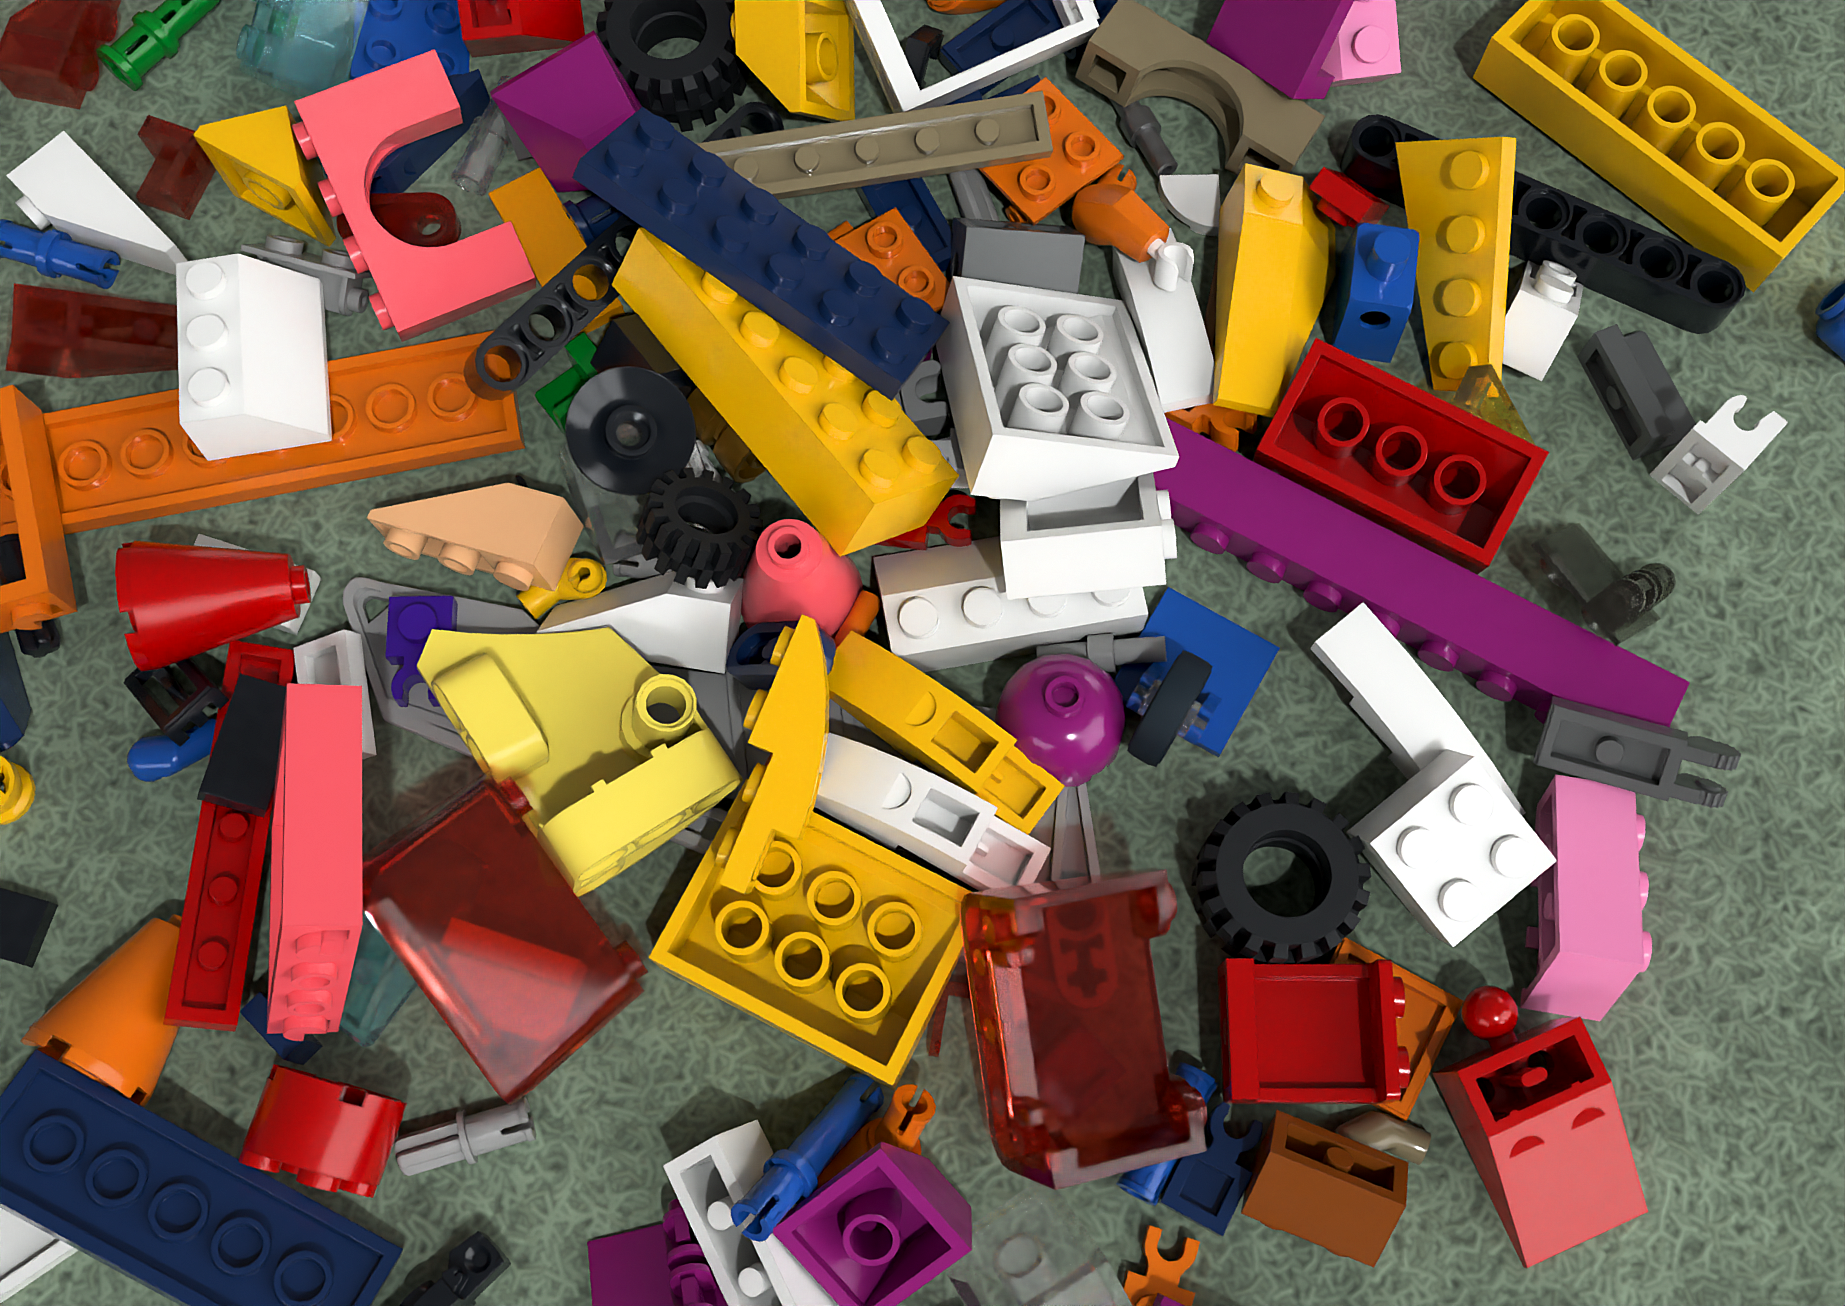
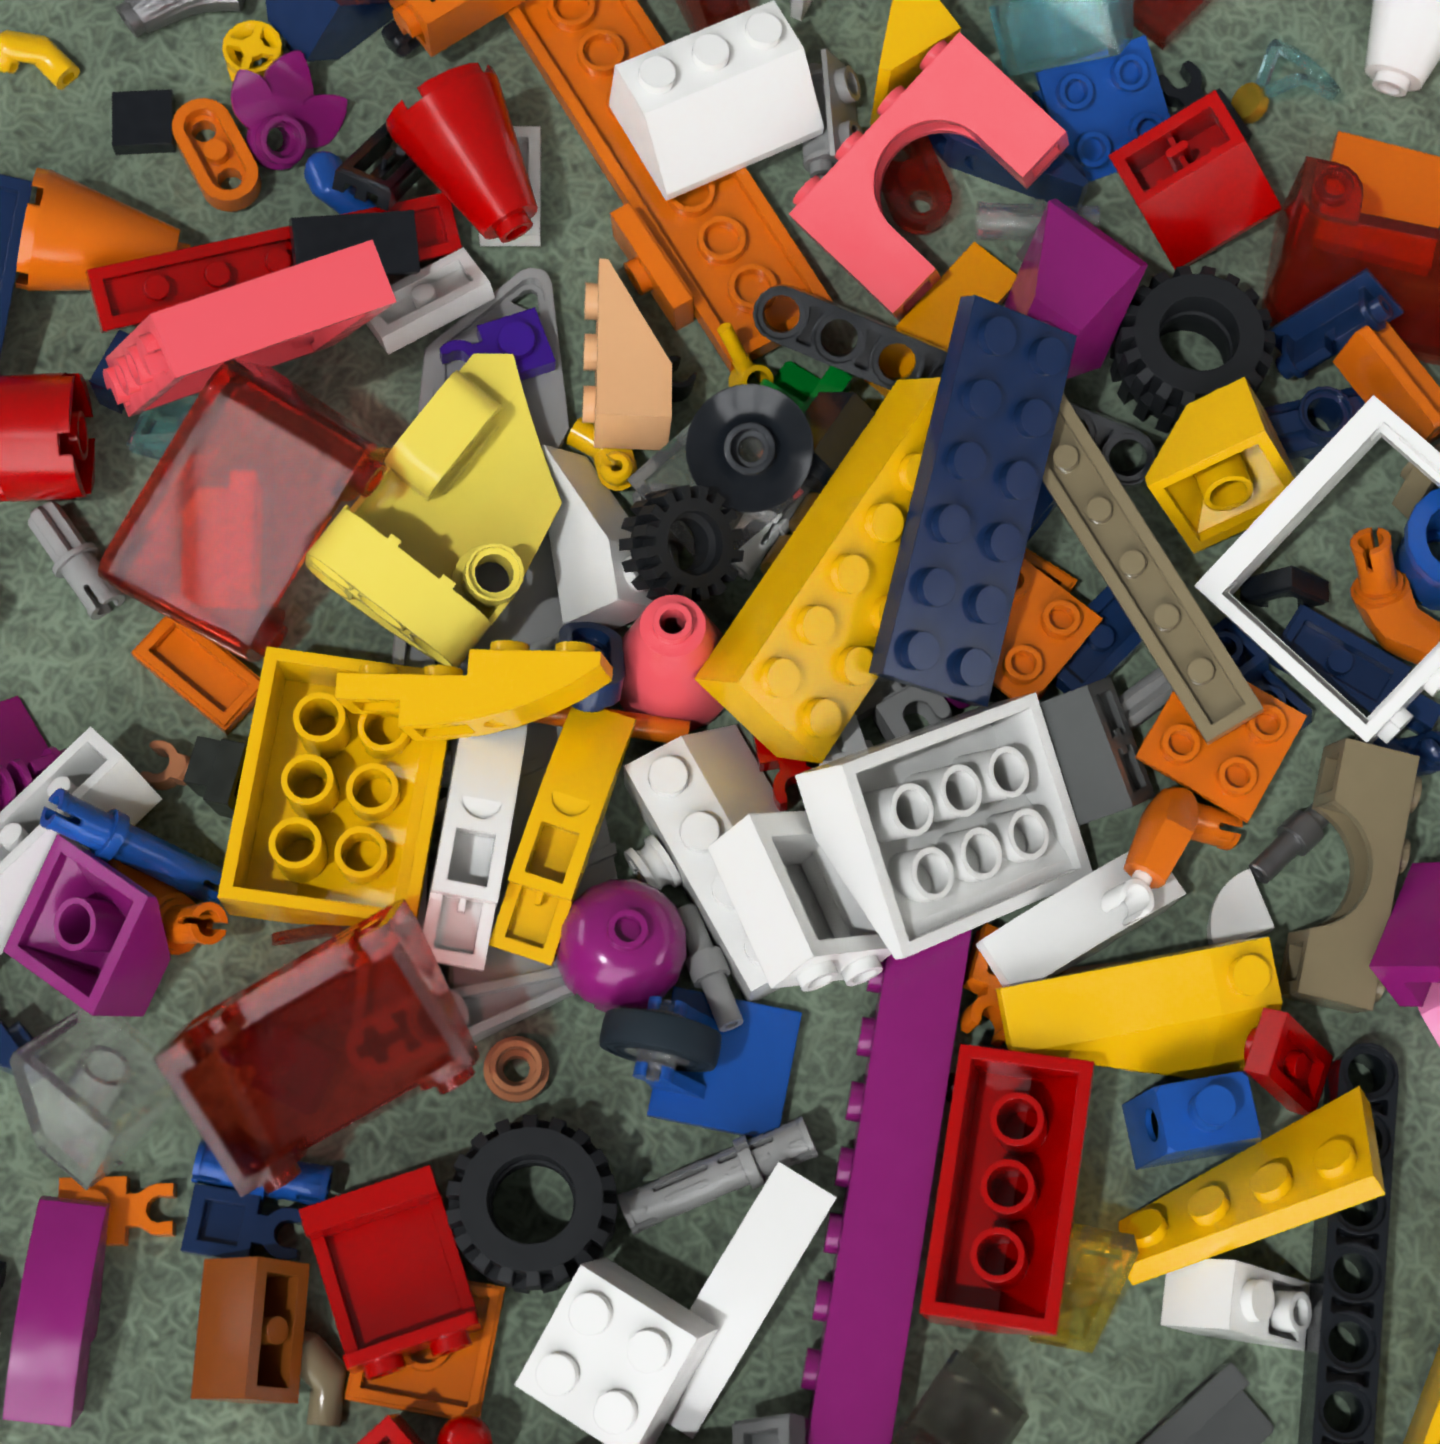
camera: 65 degrees right, 0 degrees up
(58, 772) = (285, 102): none -> magenta plate
(85, 858) = (217, 158): none -> orange plate
(391, 478) = (651, 268): none -> orange plate
(534, 436) = (741, 360): none -> yellow hand
(634, 1045) = (199, 673): none -> orange tile
(746, 1056) = (210, 771): none -> pearl dark grey piece
(986, 671) = (653, 864): none -> white bush
(1137, 840) = (516, 1048): none -> nougat plate
(1298, 703) = (720, 1174): none -> light grey pin

